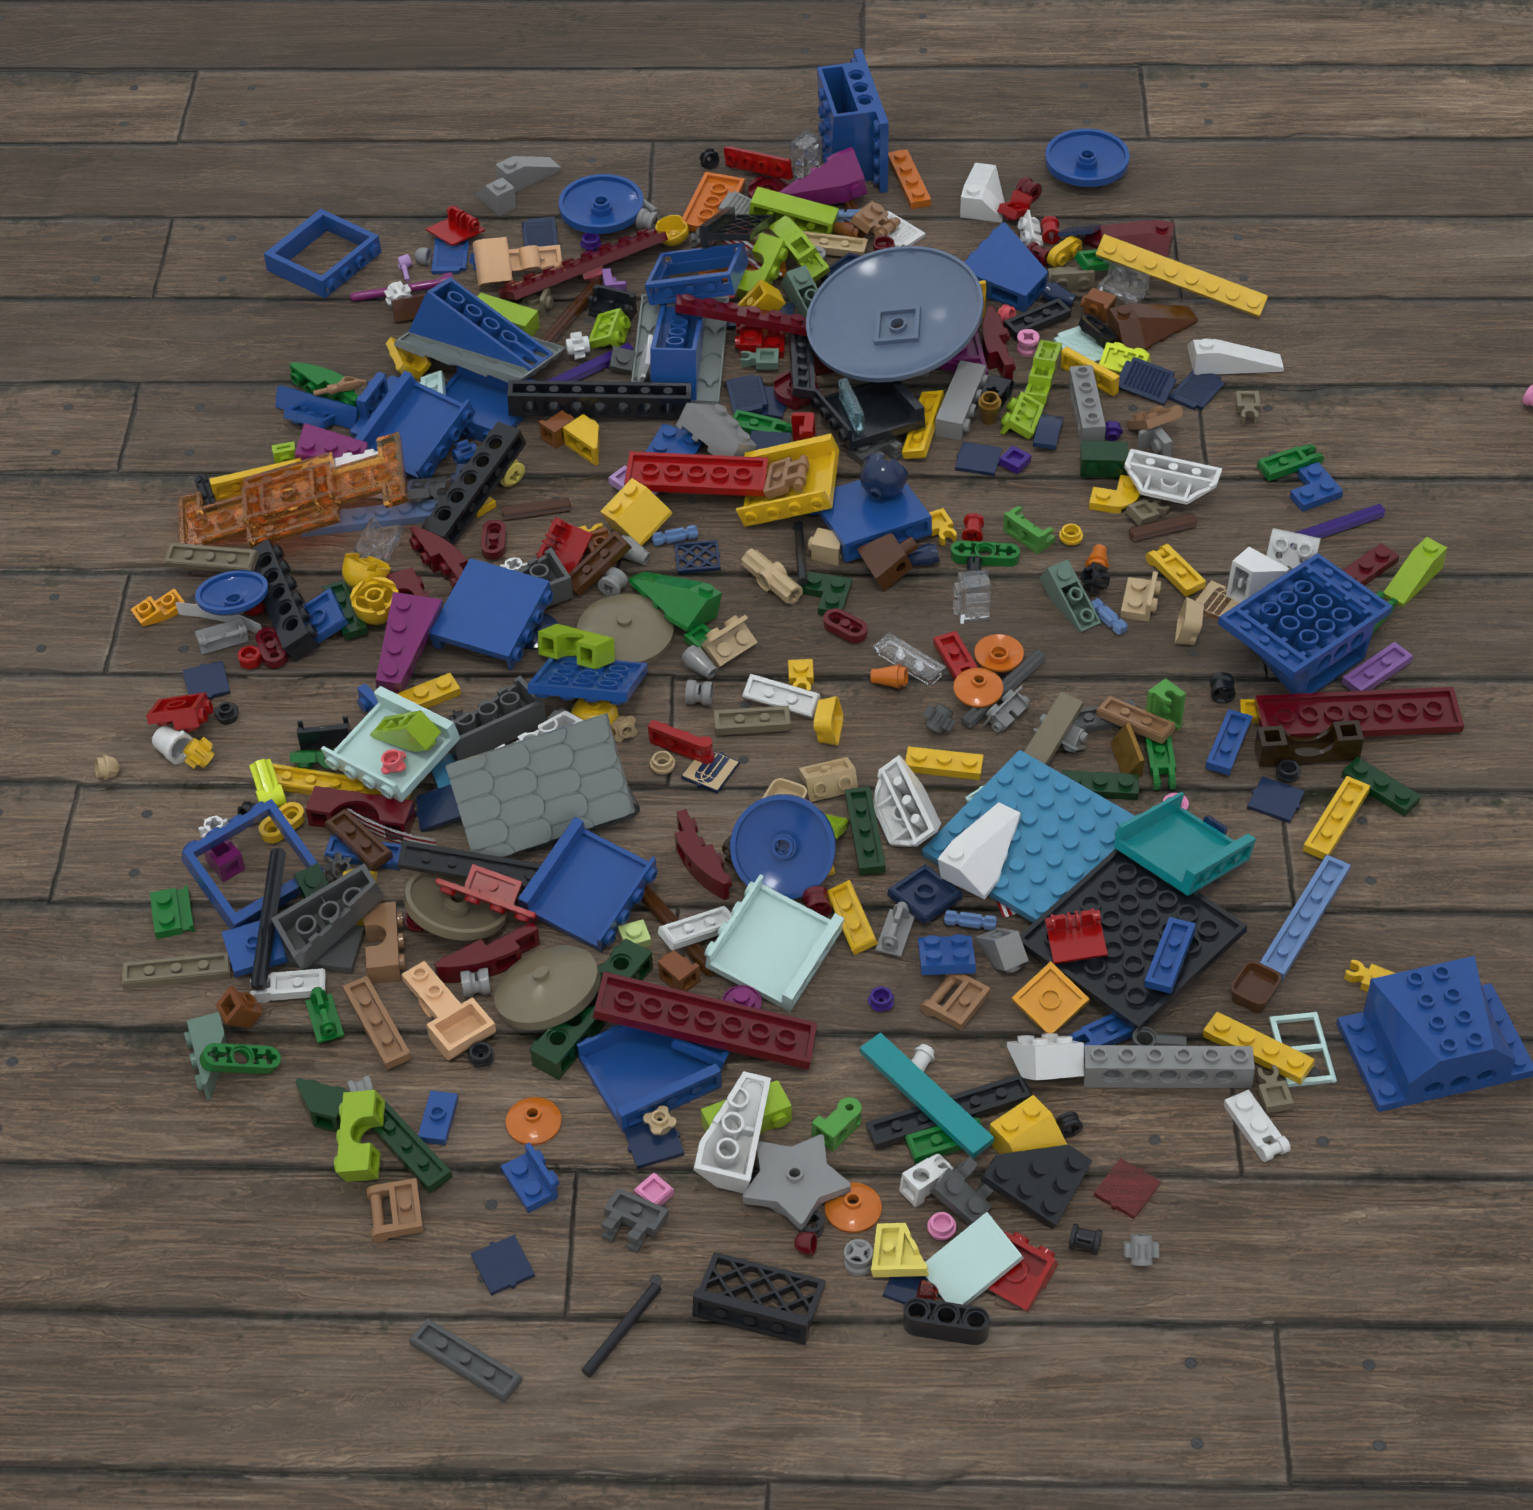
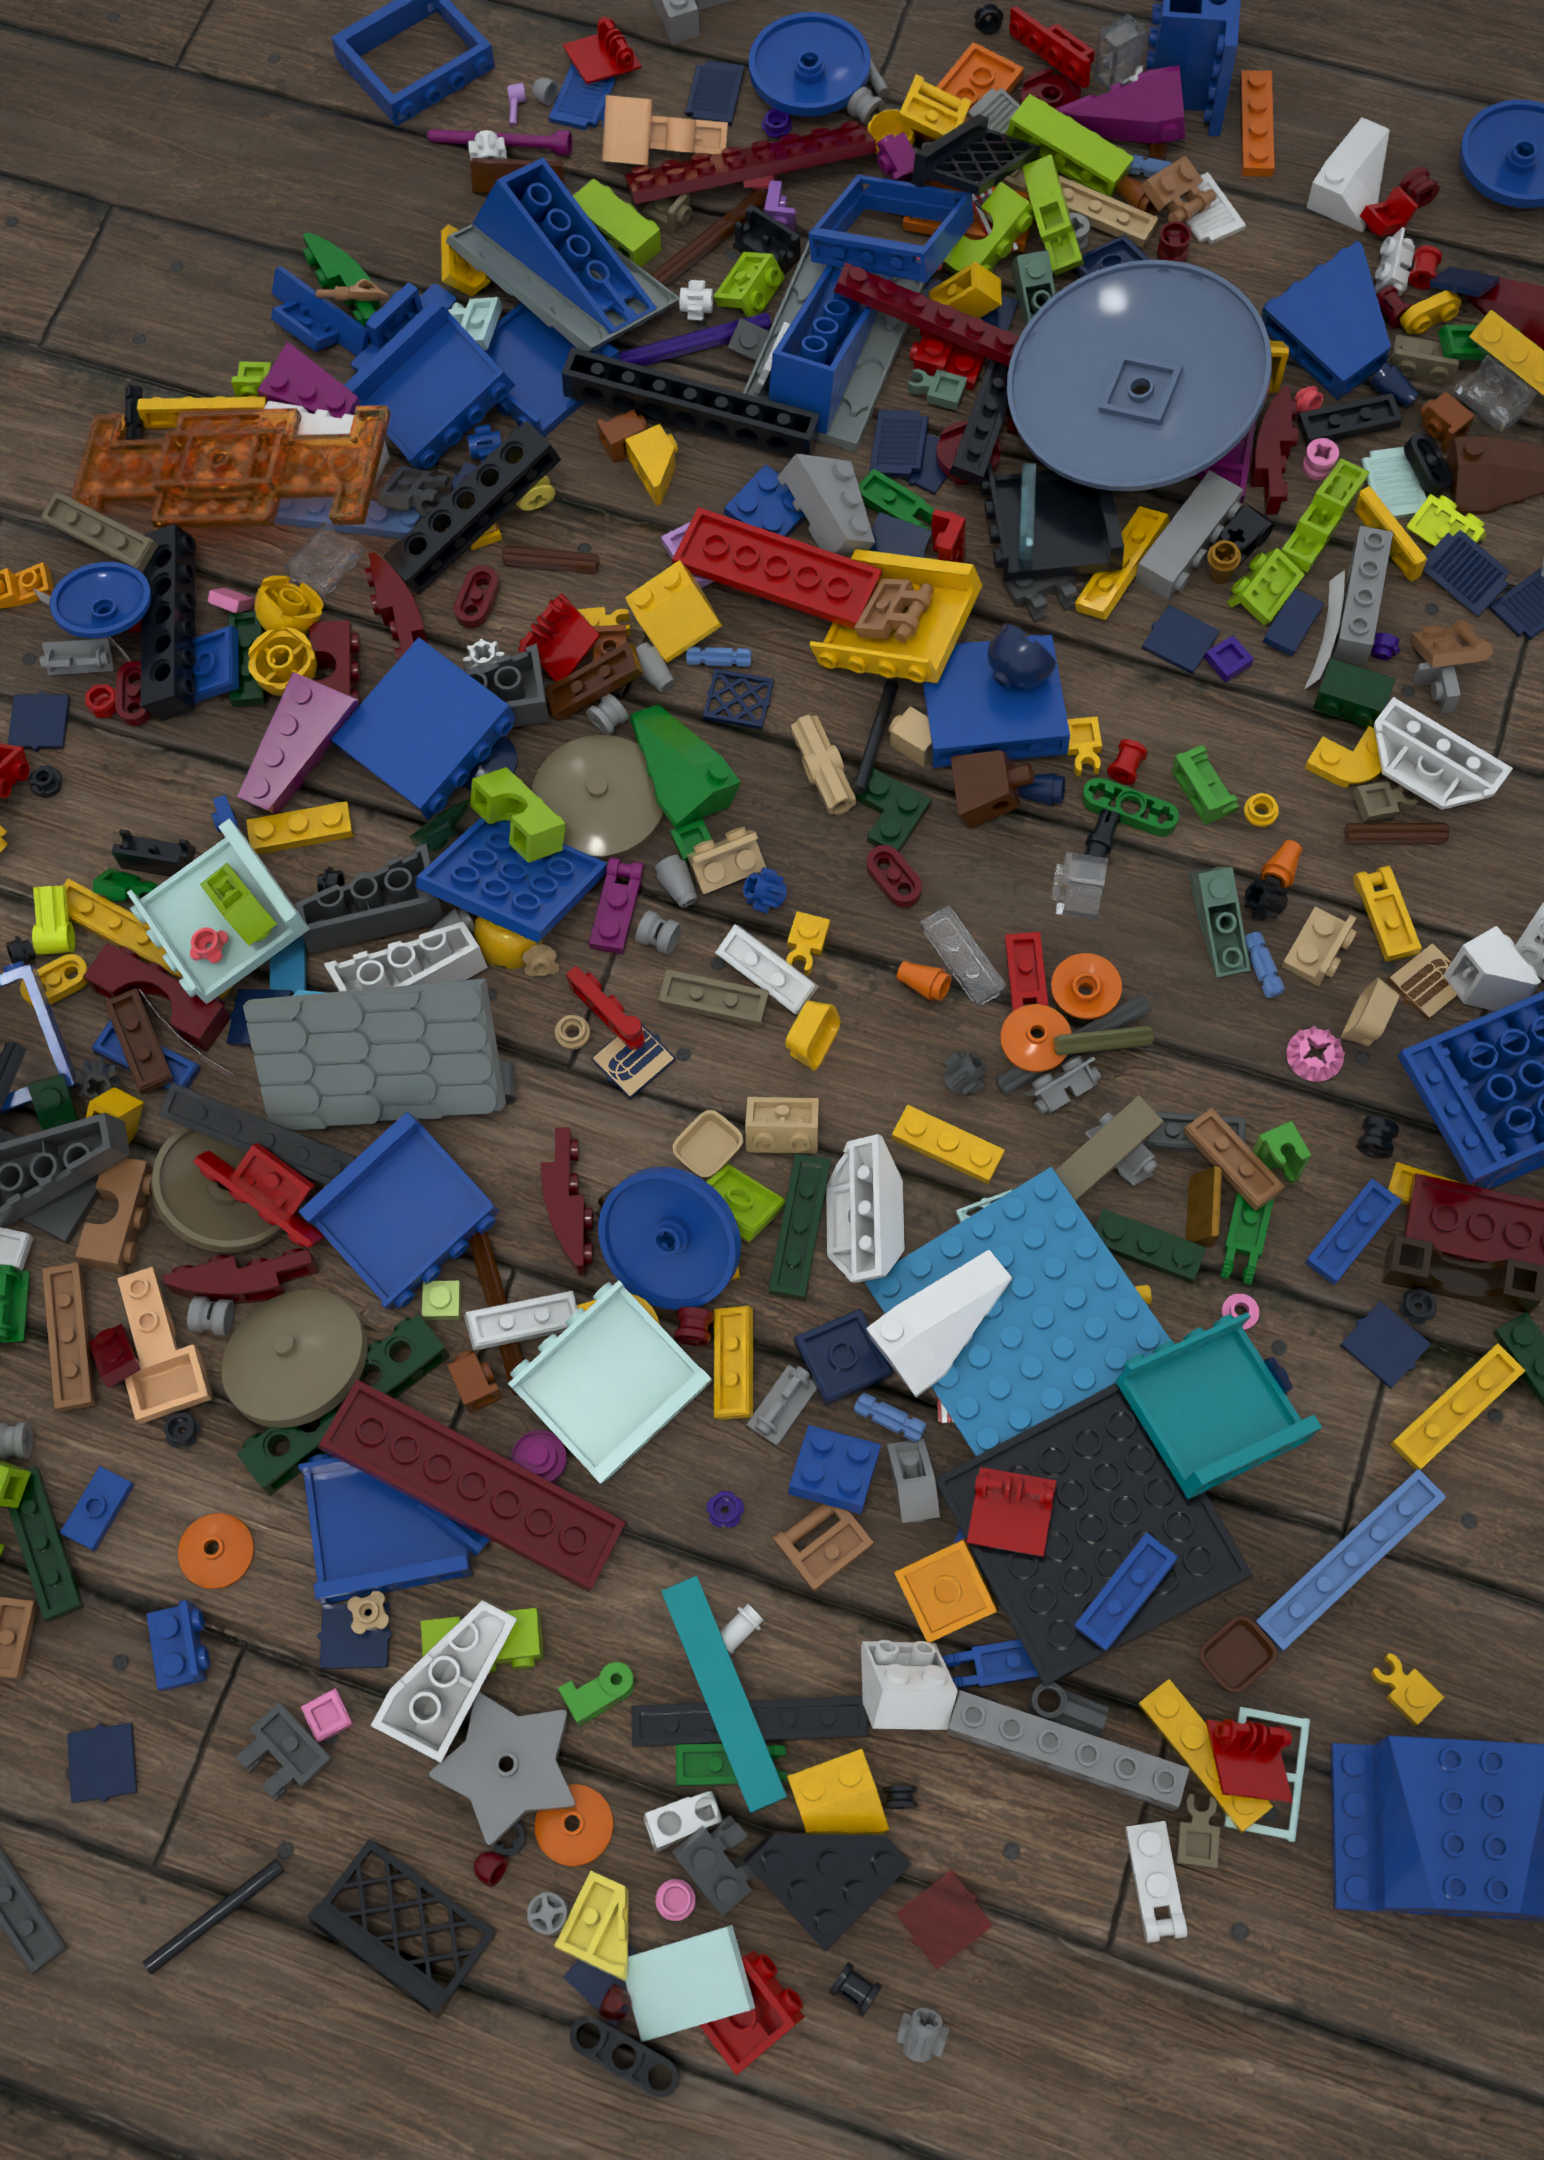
camera: 20 degrees right, 20 degrees up
(319, 579) = (230, 600): none -> bright pink tile
(417, 1019) = (114, 1355): none -> dark red plate
(524, 670) = (440, 828): none -> clear green plate
(663, 688) = (616, 907): none -> magenta plate
(683, 237) = (896, 157): none -> magenta brick
(694, 209) = (929, 116): none -> yellow plate
(762, 651) = (764, 890): none -> blue gear
(1023, 677) = (1103, 1040): none -> olive axle
(1073, 427) = (1335, 604): none -> white sticker
(1162, 663) = (1313, 1068): none -> bright pink gear
(1287, 1031) = (1250, 1759): none -> red hinge

